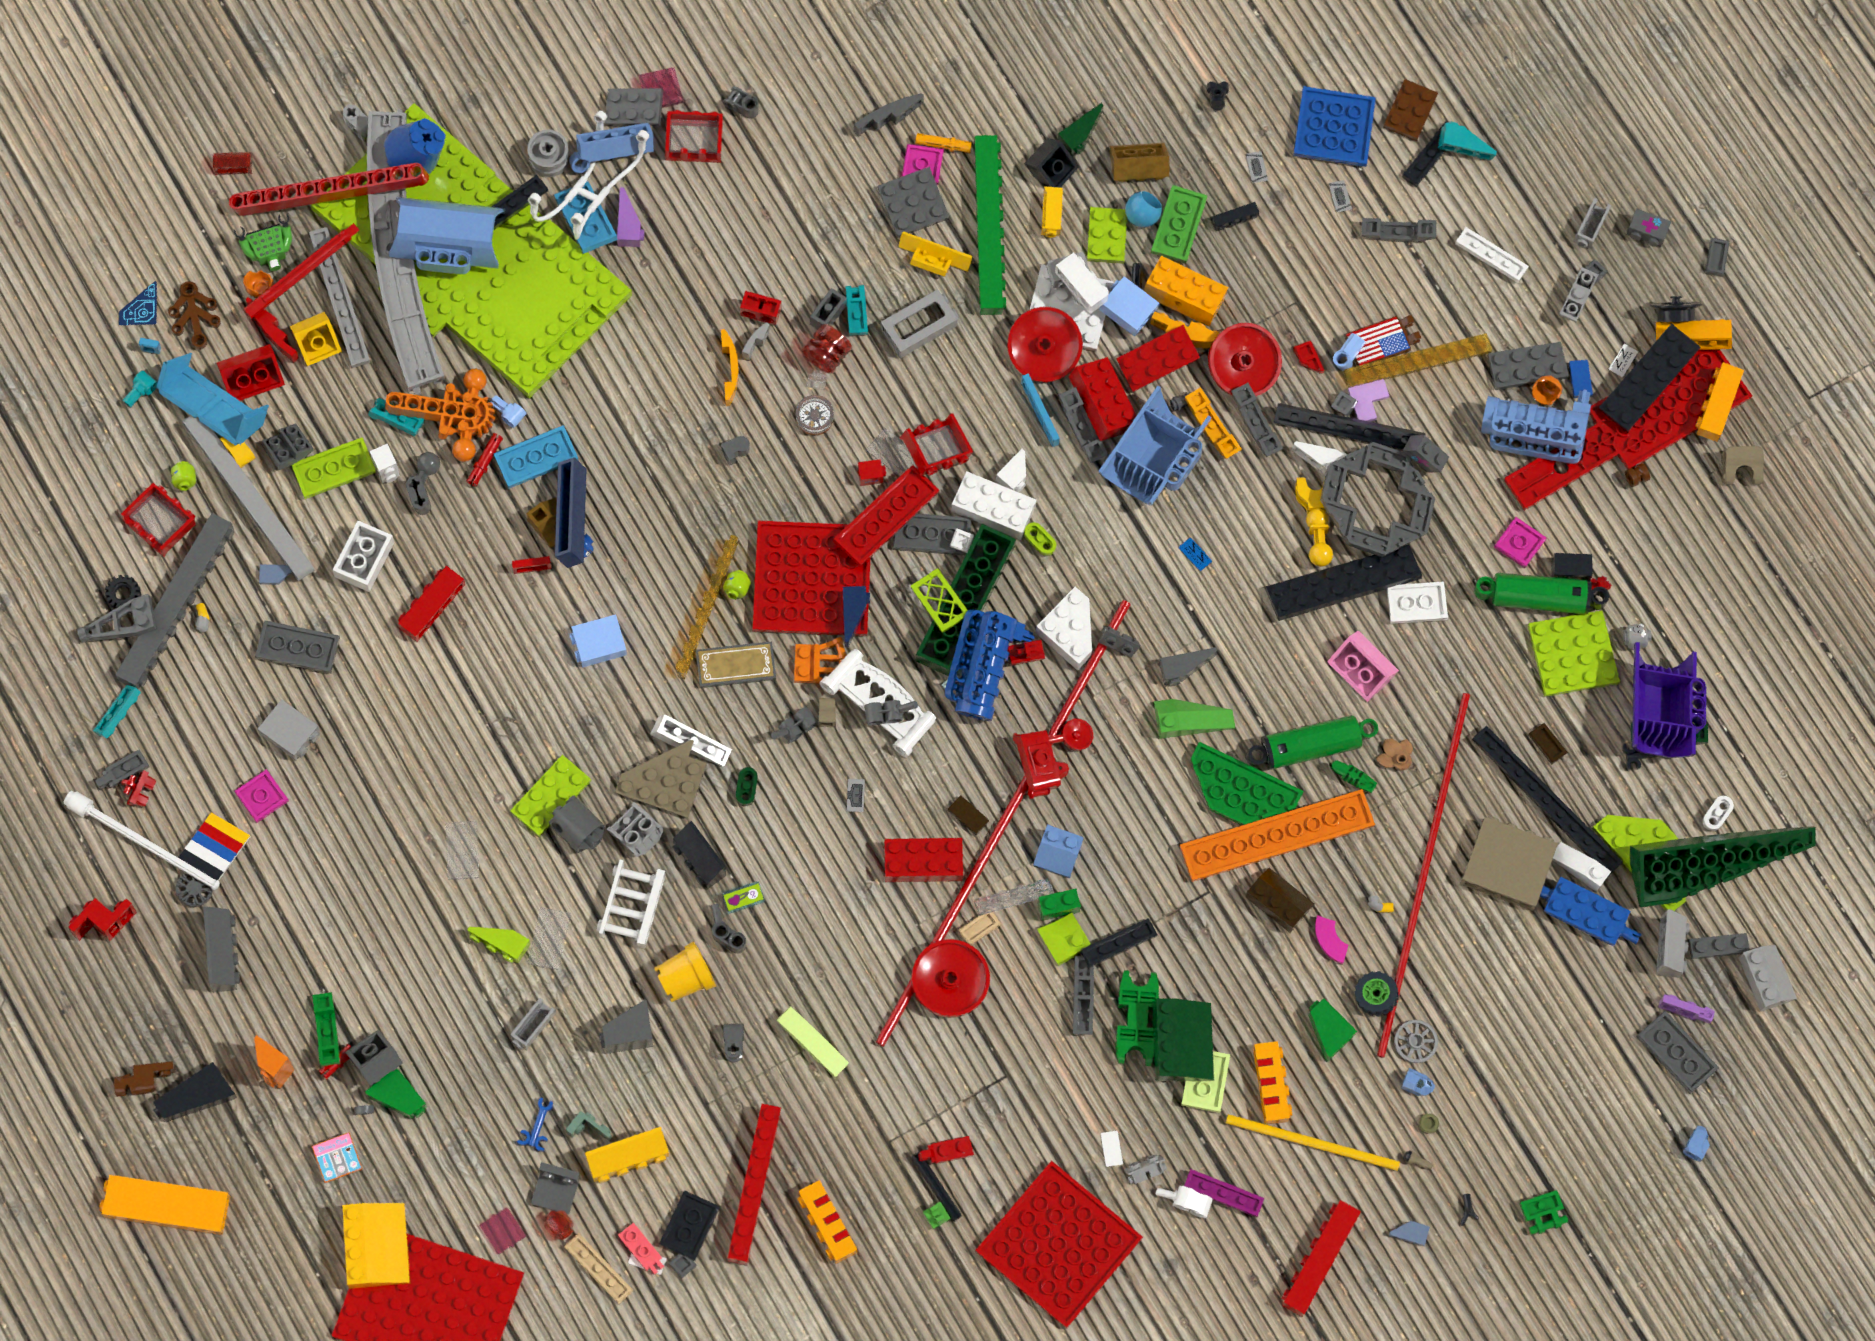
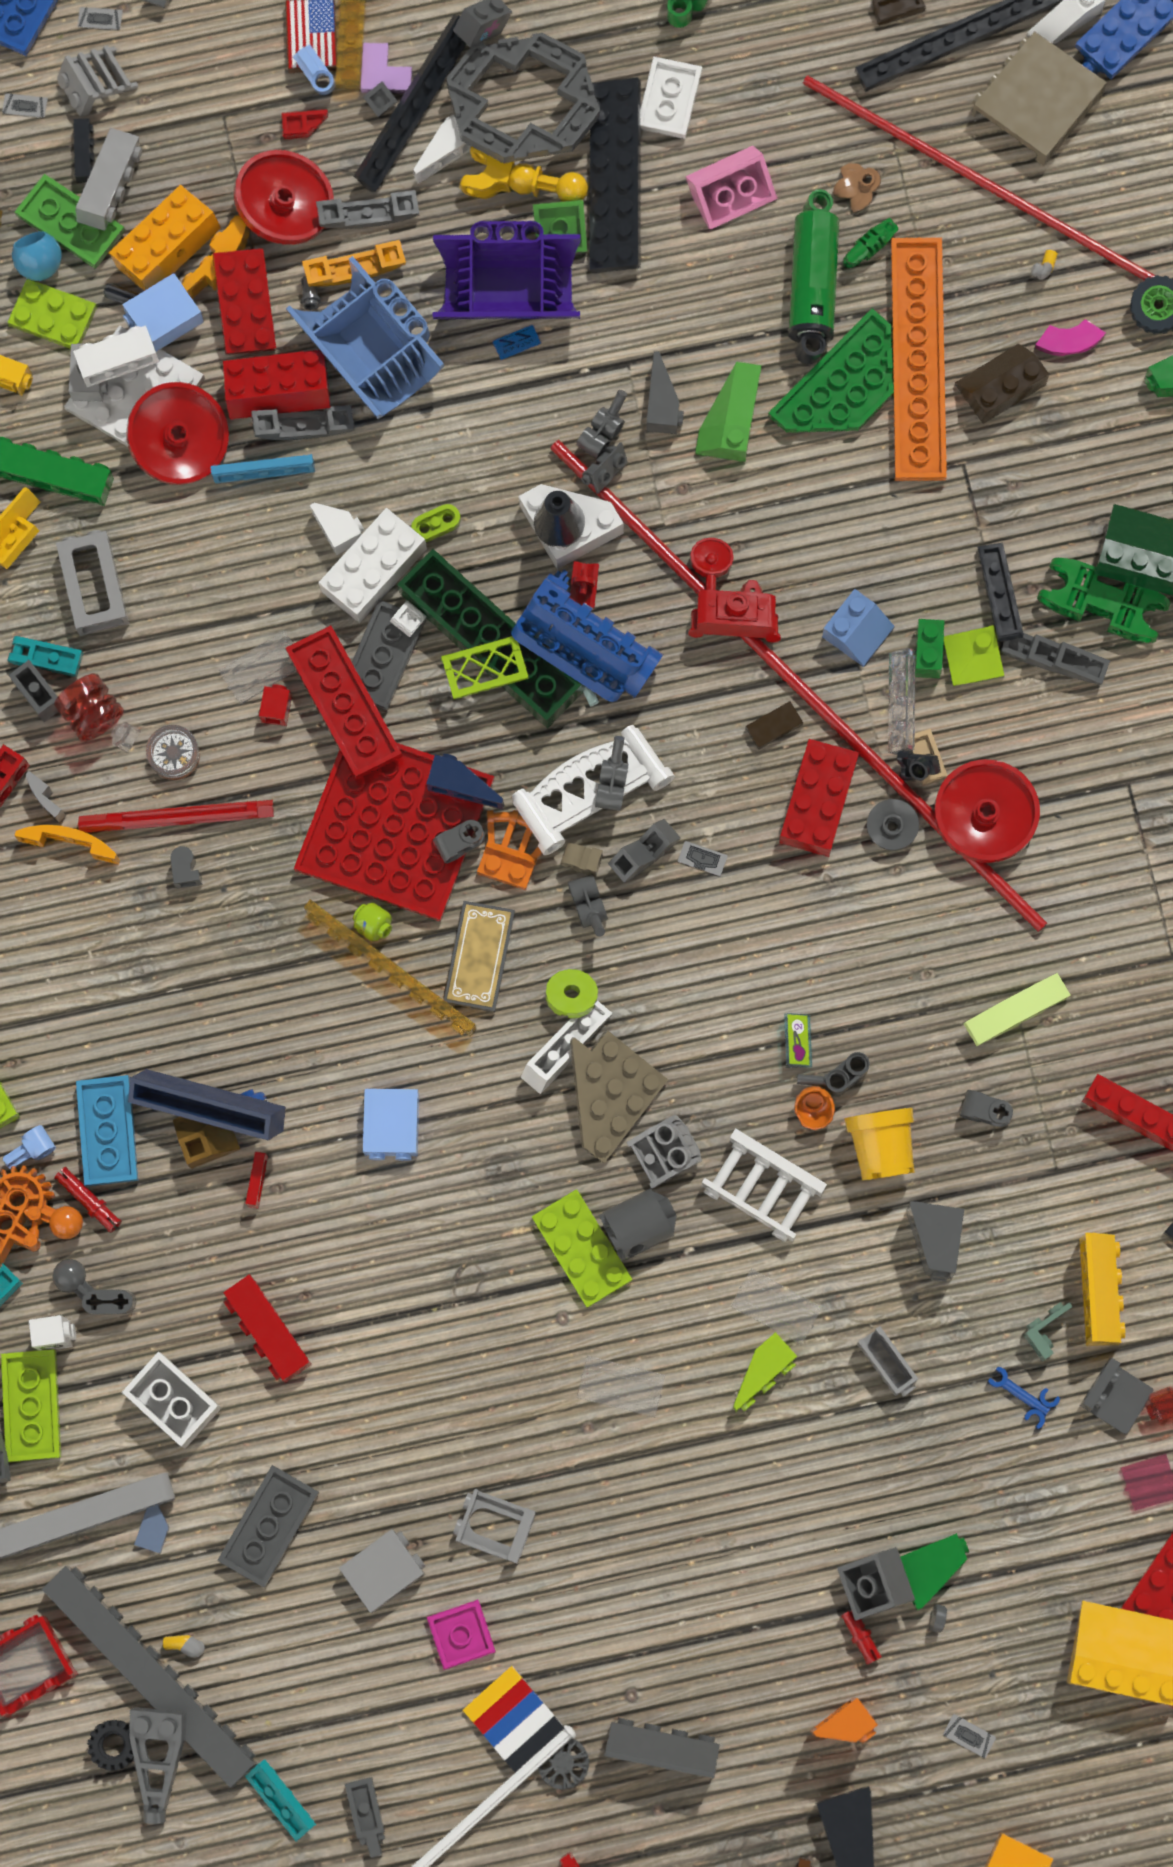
camera: 60 degrees left, 5 degrees up
(136, 797) = (390, 1792): red hips -> none
(290, 1156) = (969, 1736): none -> sticker
(326, 1029) = (815, 1638): green slope -> none
(337, 1157) = (993, 1673): piece -> none
(341, 814) = (482, 1500): none -> light grey panel
(697, 921) = (814, 1107): none -> orange hair
(699, 856) = (728, 1078): black slope -> none
(732, 724) = (571, 980): none -> lime tile
(746, 787) = (650, 991): dark green plate -> none
(770, 432) = (176, 816): none -> red piece
(809, 621) = (456, 842): none -> dark grey piece
(843, 751) = (644, 852): none -> dark grey brick
(924, 908) = (894, 812): none -> dark grey dish
(937, 445) = (269, 608): window -> none
(968, 920) = (917, 765): none -> black plate
(1063, 617) = (559, 520): none -> black cone
(1148, 633) = (605, 428): none -> dark grey beam
(1217, 238) = (108, 179): none -> light grey brick
(1236, 533) = (508, 276): none -> dark purple panel
(1283, 198) = (82, 83): none -> light grey plate
(1288, 555) = (562, 218): none -> bright green hinge

